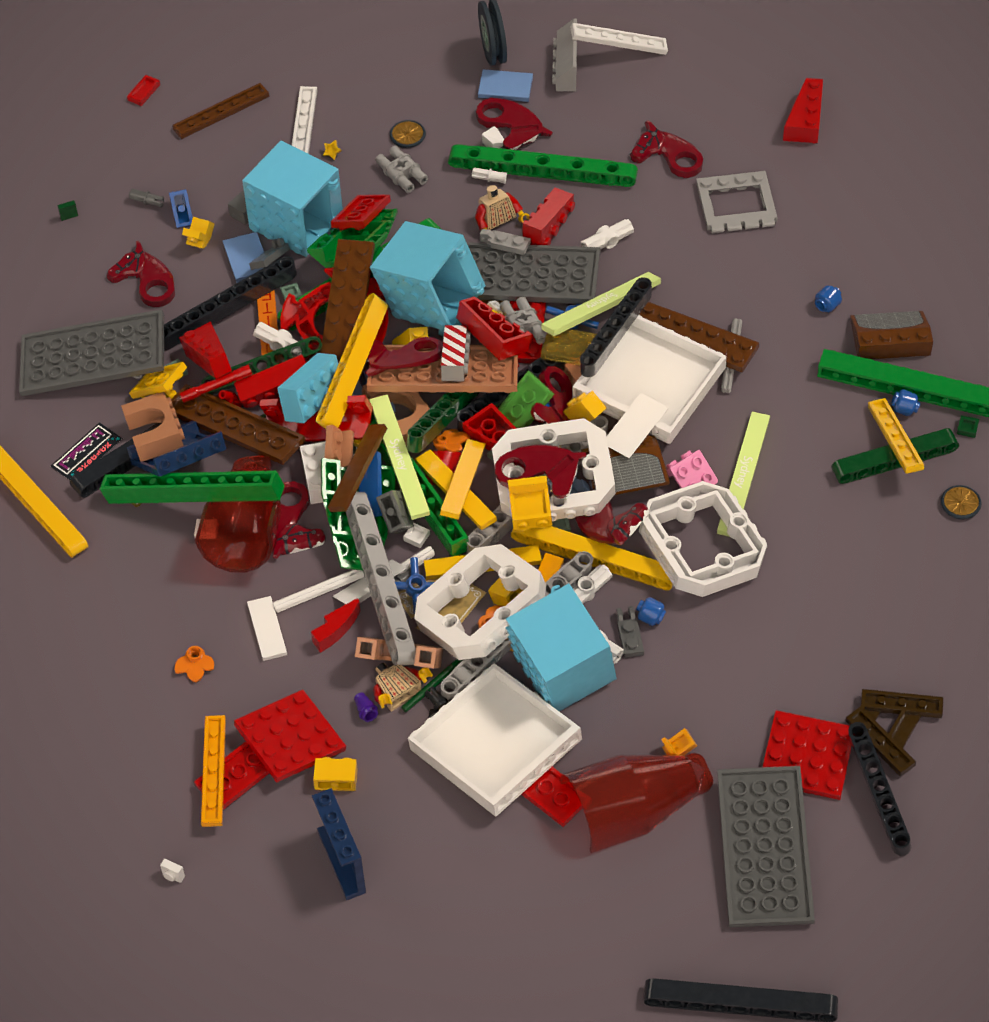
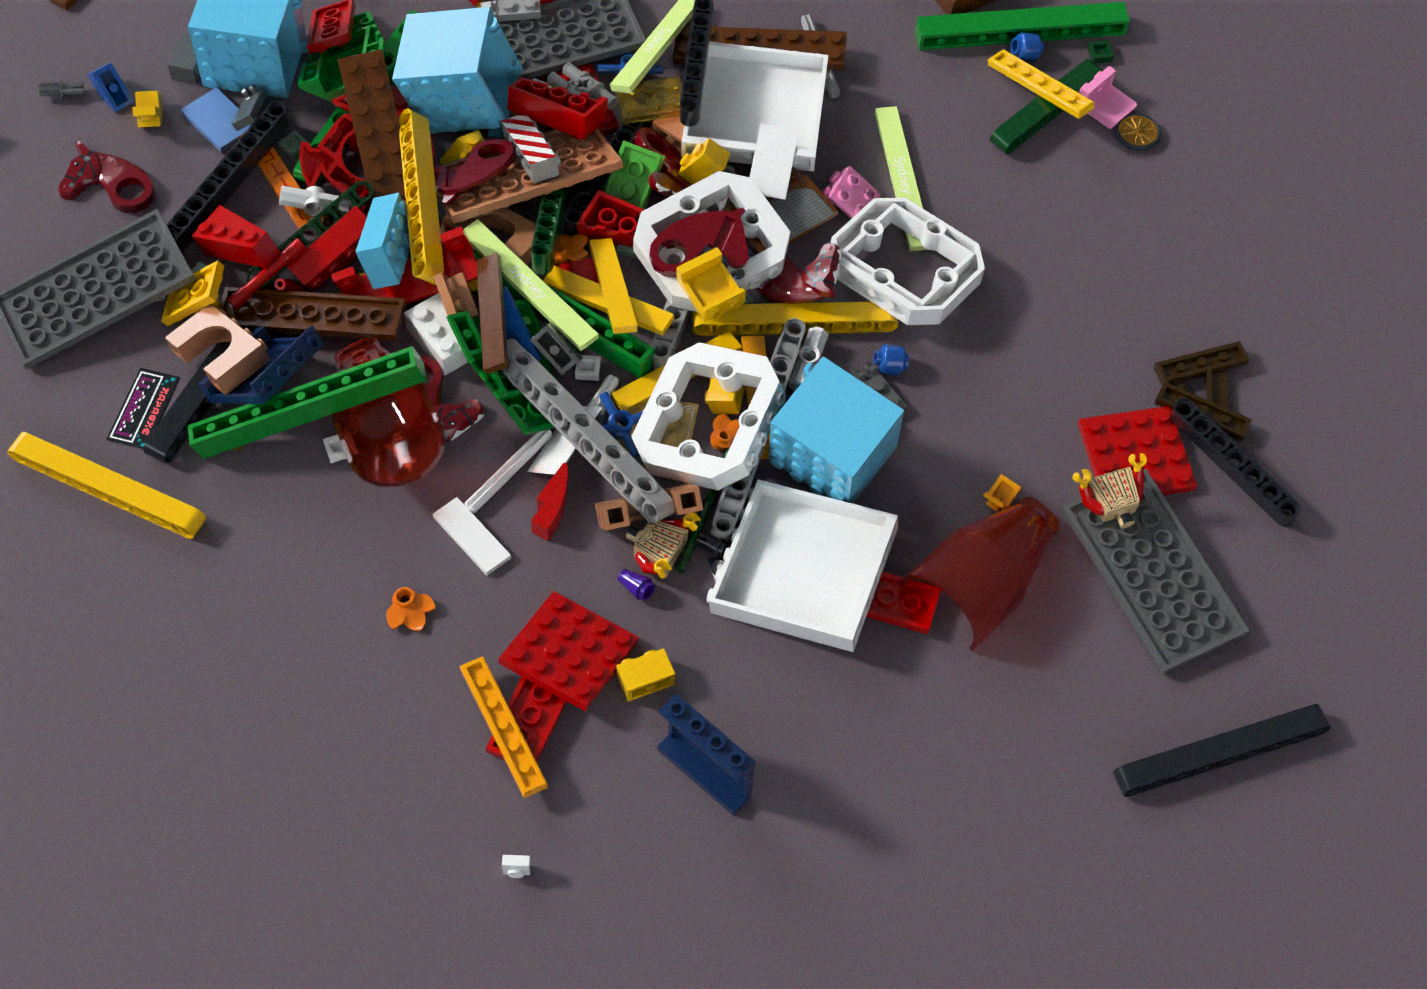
camera: 30 degrees left, 5 degrees up
(758, 773) = (1114, 493): none -> torso
(946, 466) = (1110, 103): none -> bright pink bracket

